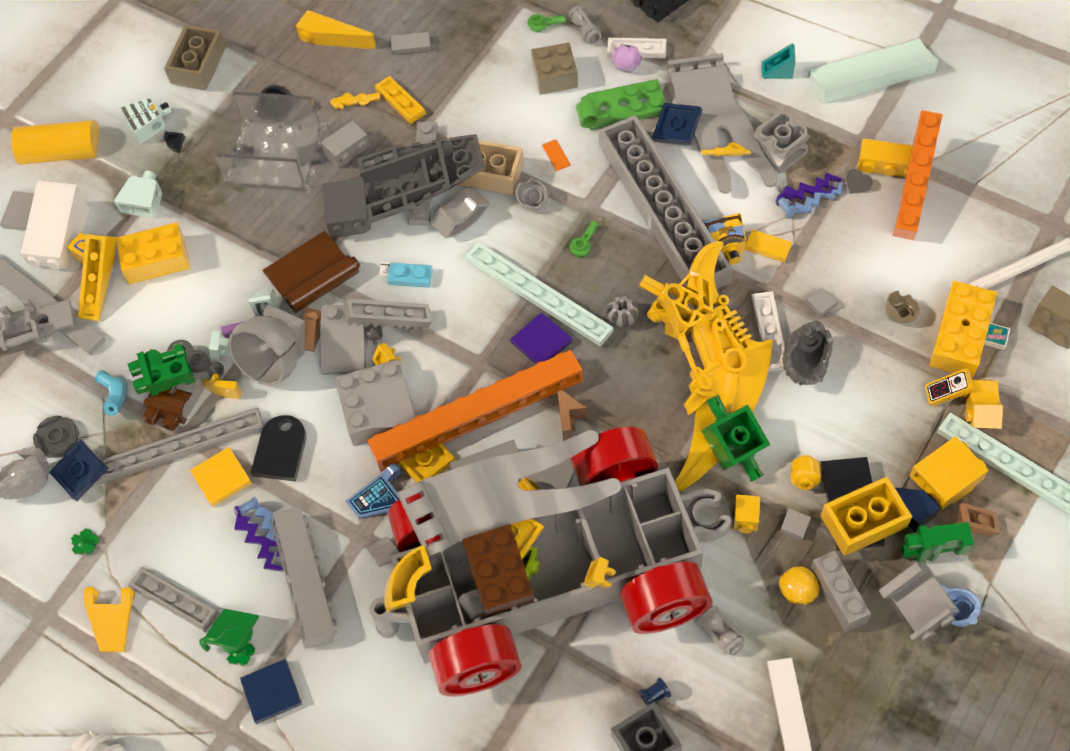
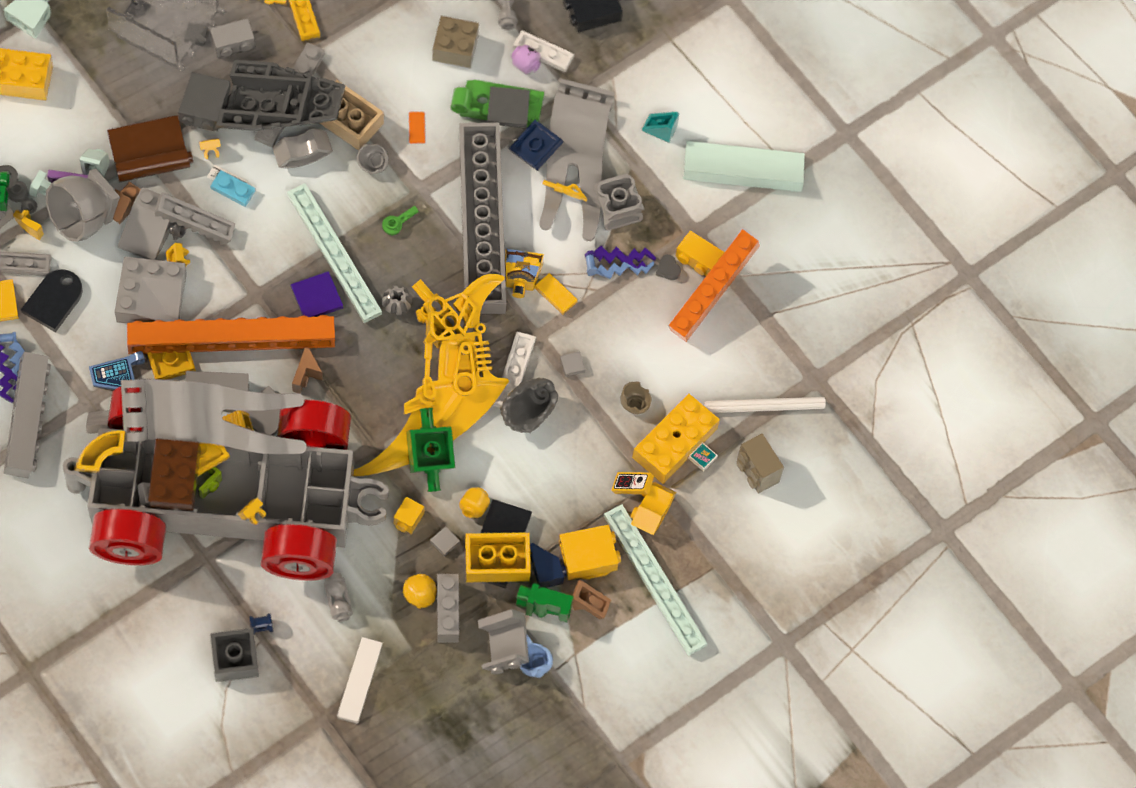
camera: 10 degrees right, 5 degrees up
(368, 244) = (208, 145): none -> yellow tile
(634, 100) = (508, 106): none -> dark grey tile

